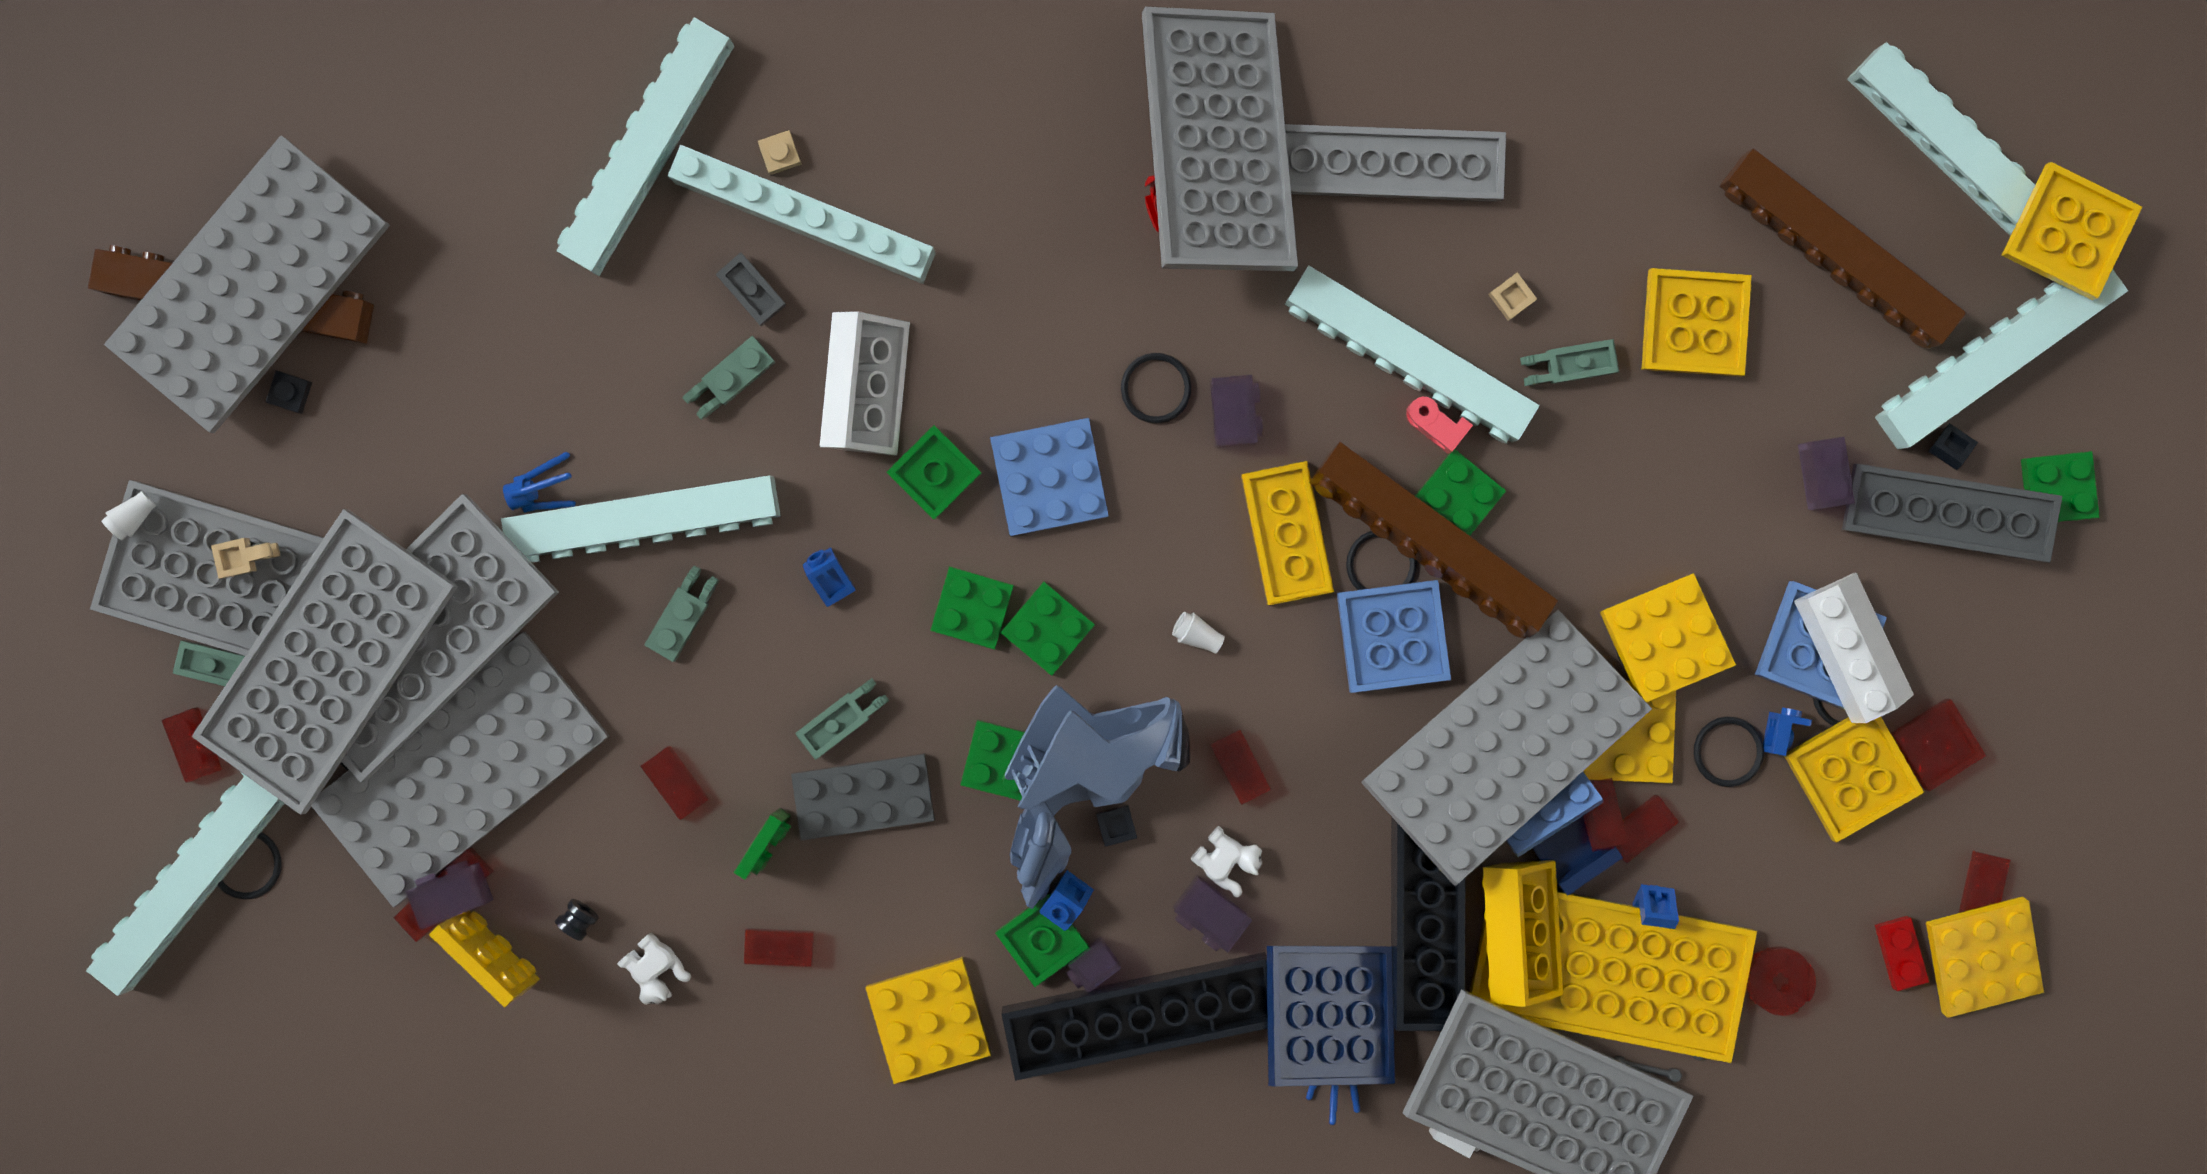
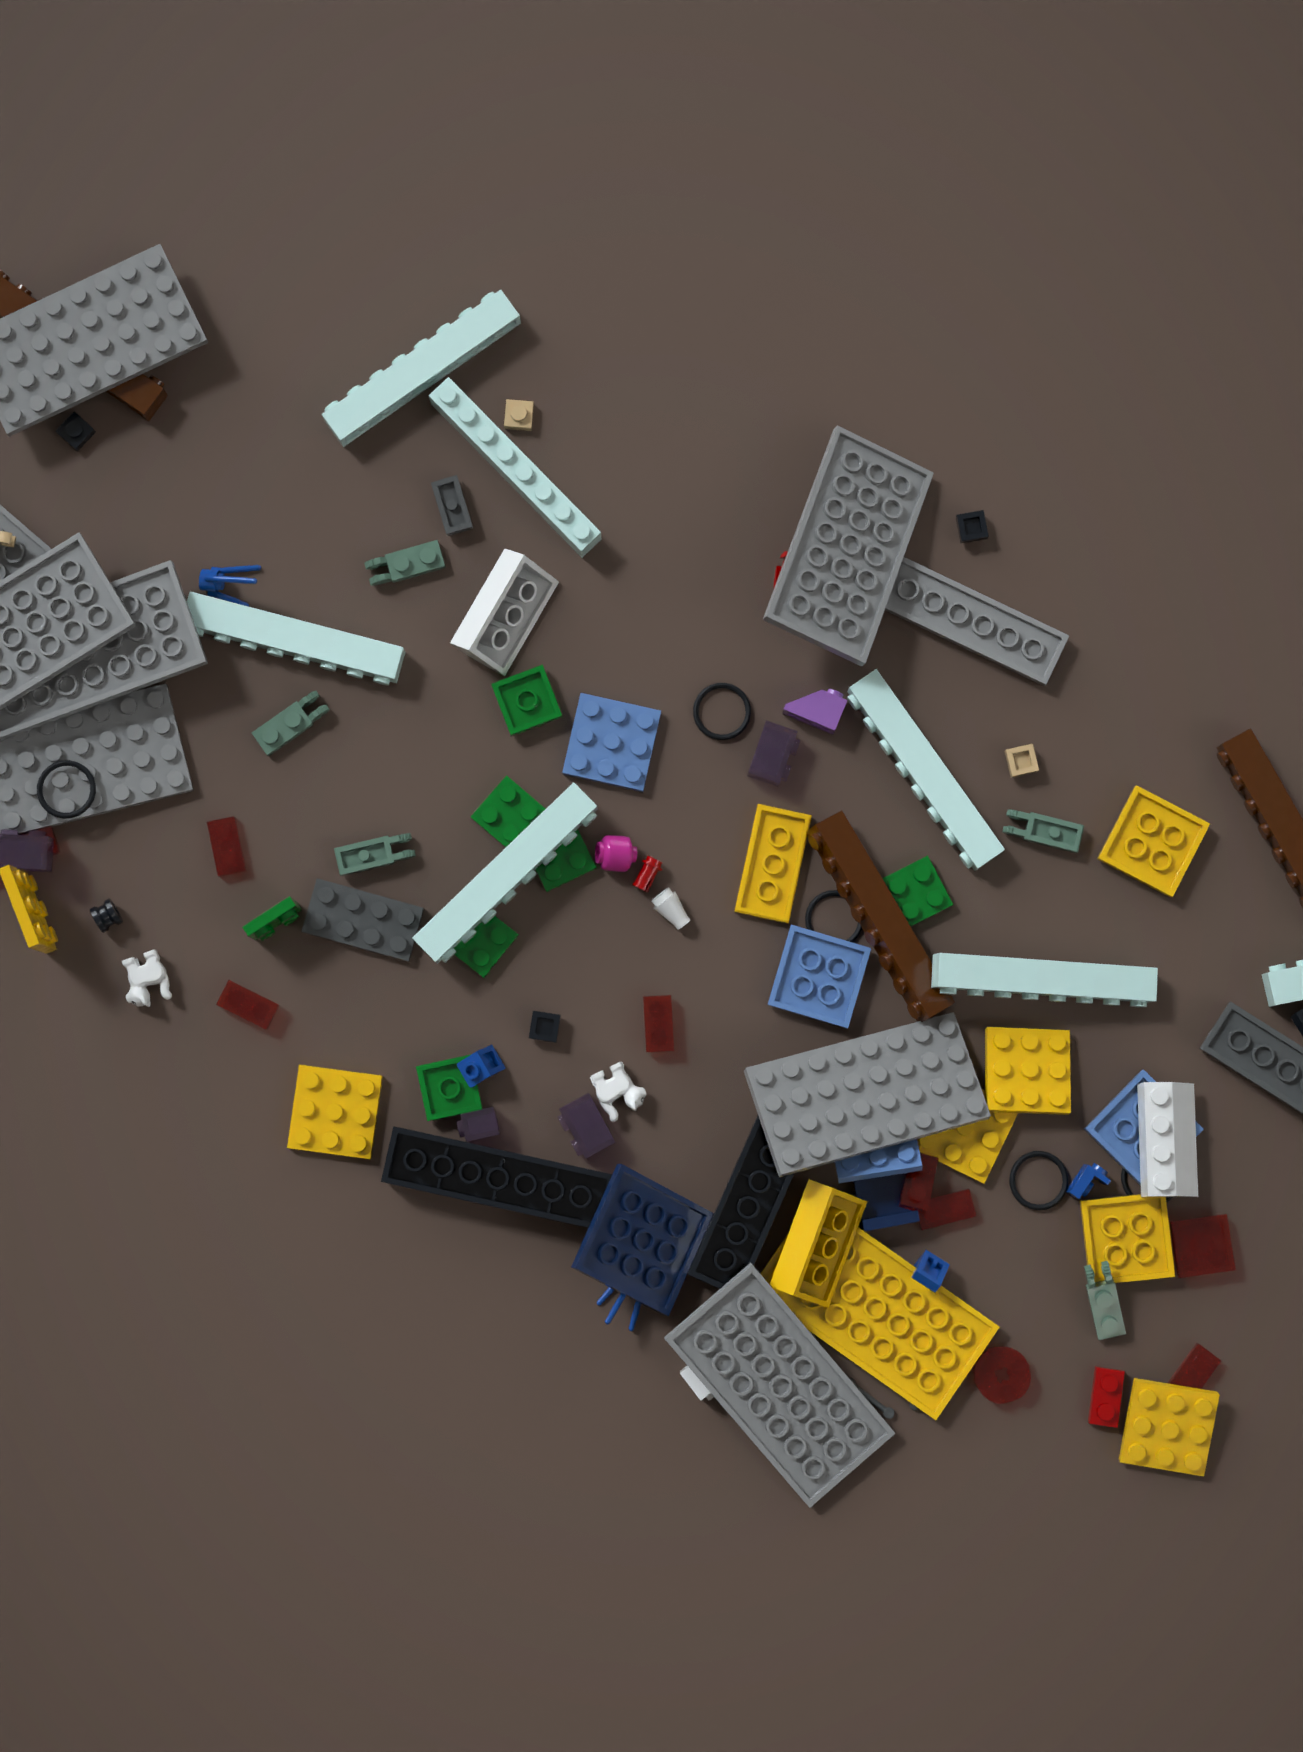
camera: 15 degrees right, 5 degrees down
(459, 770) = (59, 764): none -> black tyre
(828, 576) = (412, 743): blue bracket -> none
(998, 679) = (505, 873): none -> light aqua brick
(1083, 757) = (541, 960): sand blue piece -> none
(1109, 600) = (615, 853): none -> dark pink head
(1154, 606) = (647, 873): none -> red pin
(1264, 339) = (818, 709): none -> medium lavender slope
(1343, 56) = (972, 526): none -> black plate
(1436, 426) = (919, 829): coral leg -> none
(1644, 530) = (1044, 978): none -> light aqua brick
(1826, 473) = (1203, 998): clear purple brick -> none
(1859, 855) = (1104, 1303): none -> sand green hinge

